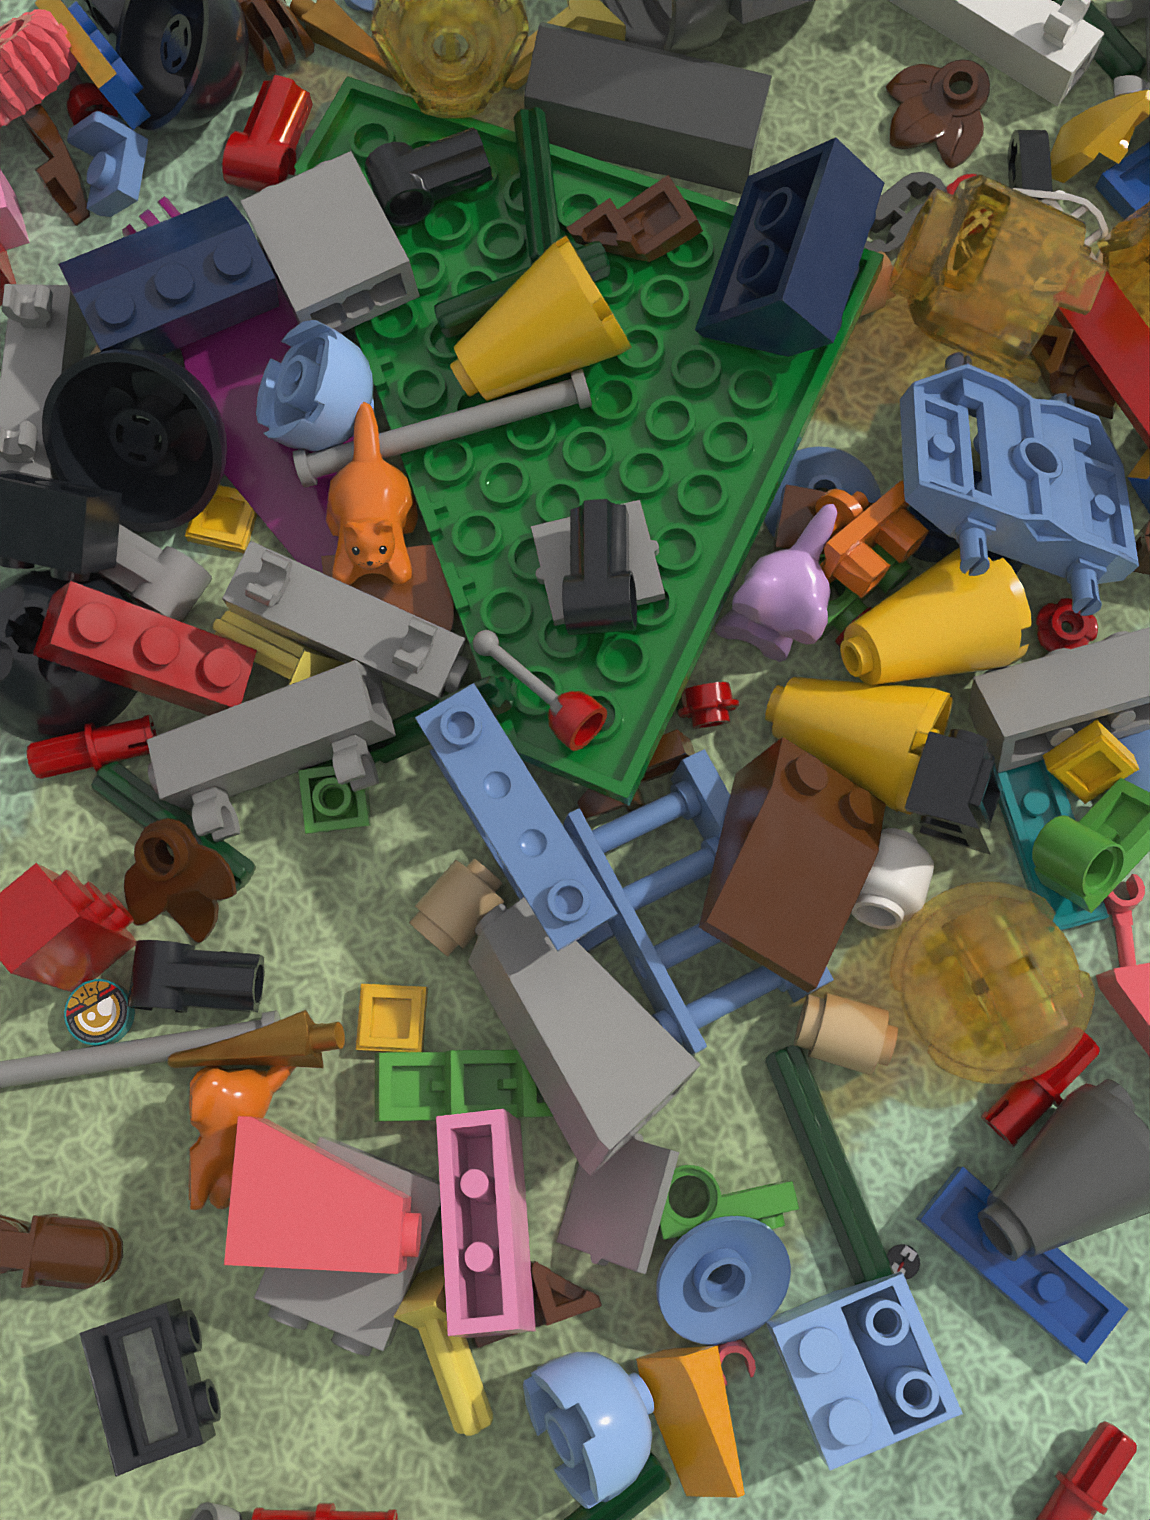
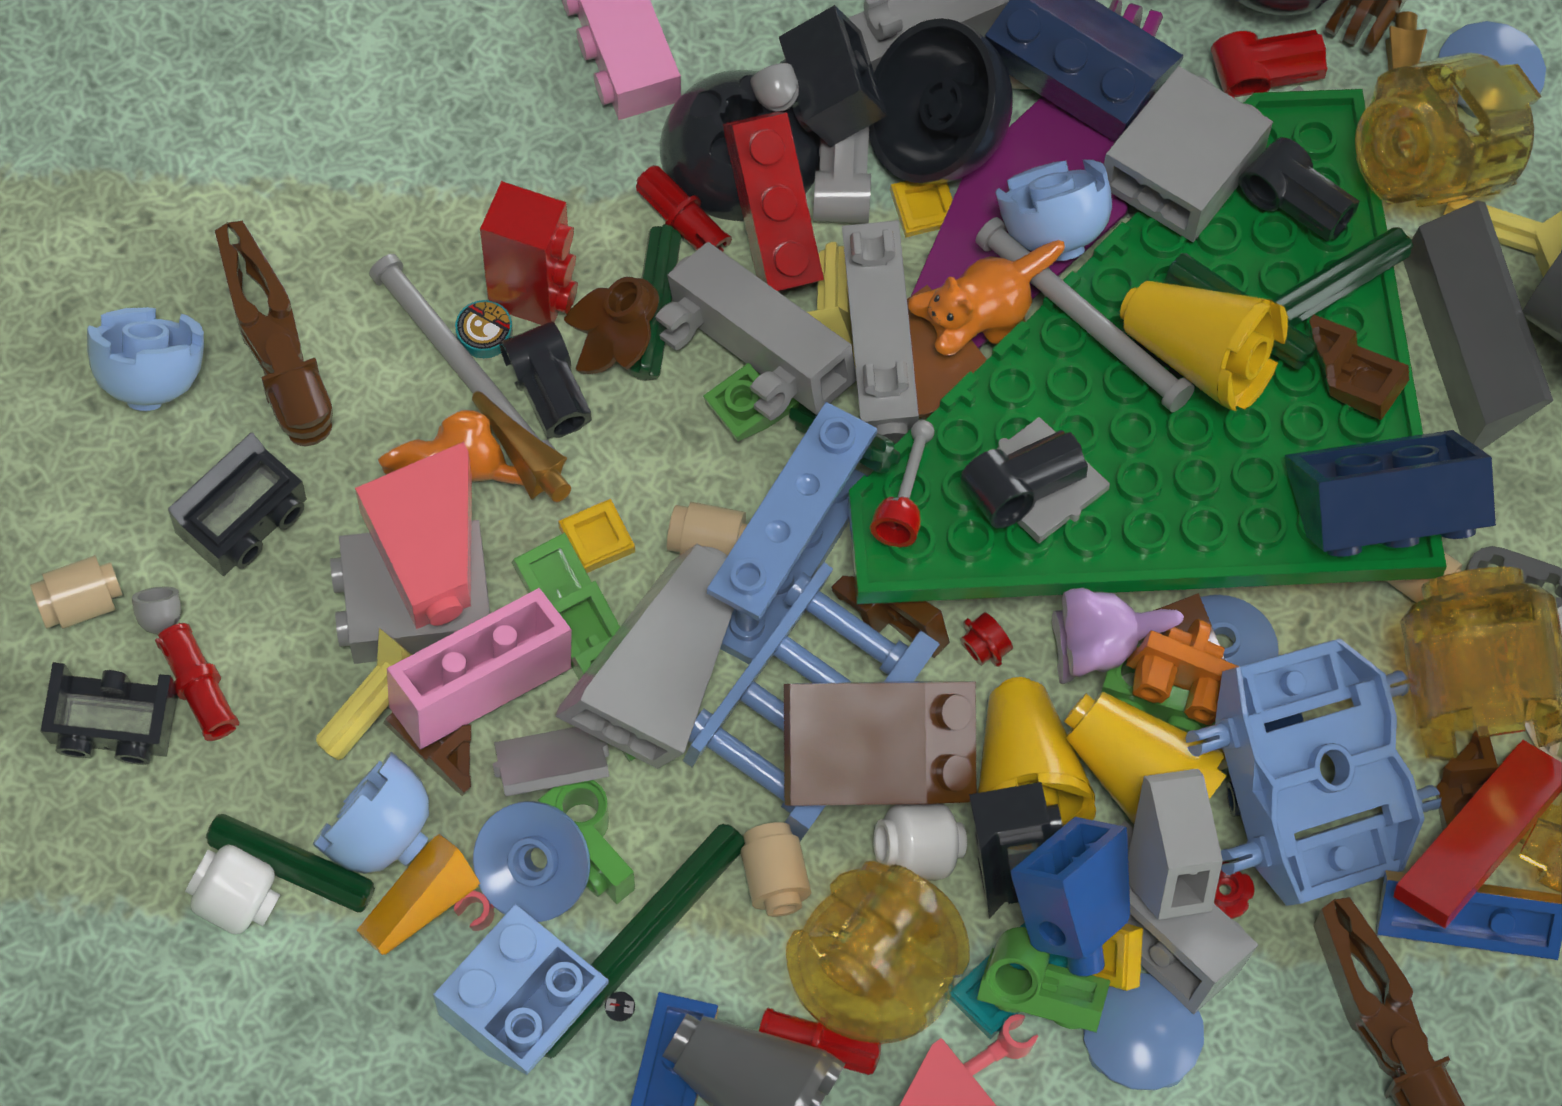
camera: 55 degrees right, 10 degrees down
(26, 580) = (776, 87): none -> light grey hinge
(1061, 644) = (1175, 846): none -> light grey slope
(1066, 779) = (1076, 892): none -> blue torso

